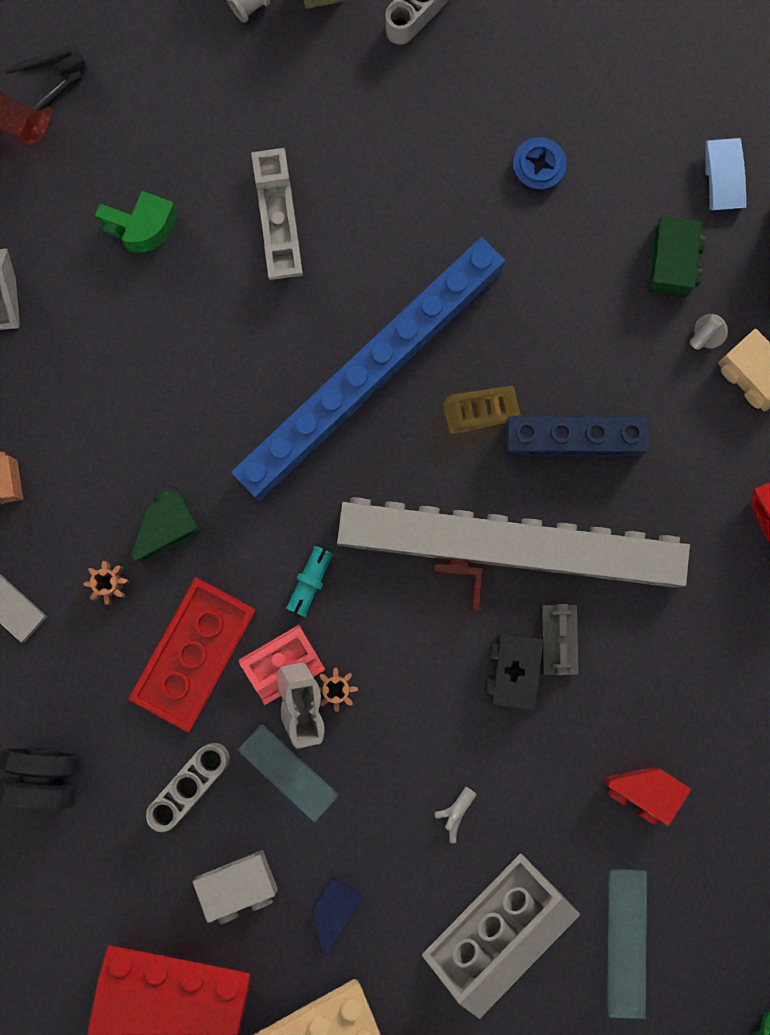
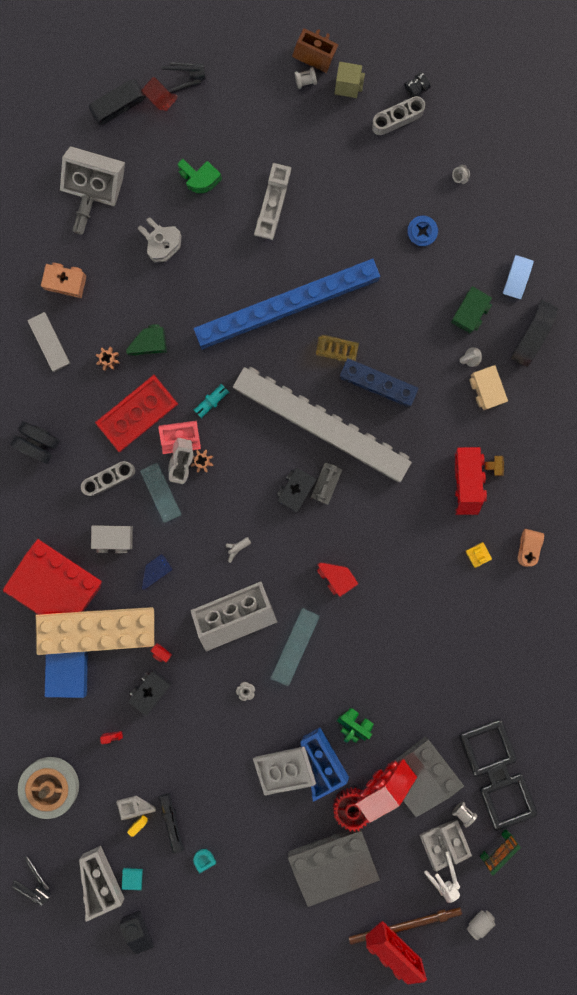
camera: 25 degrees right, 5 degrees up
(115, 351) = (159, 240): none -> light grey hinge
(462, 568) = (292, 427): clear red bracket -> none
(556, 53) = (457, 174): none -> light grey plate

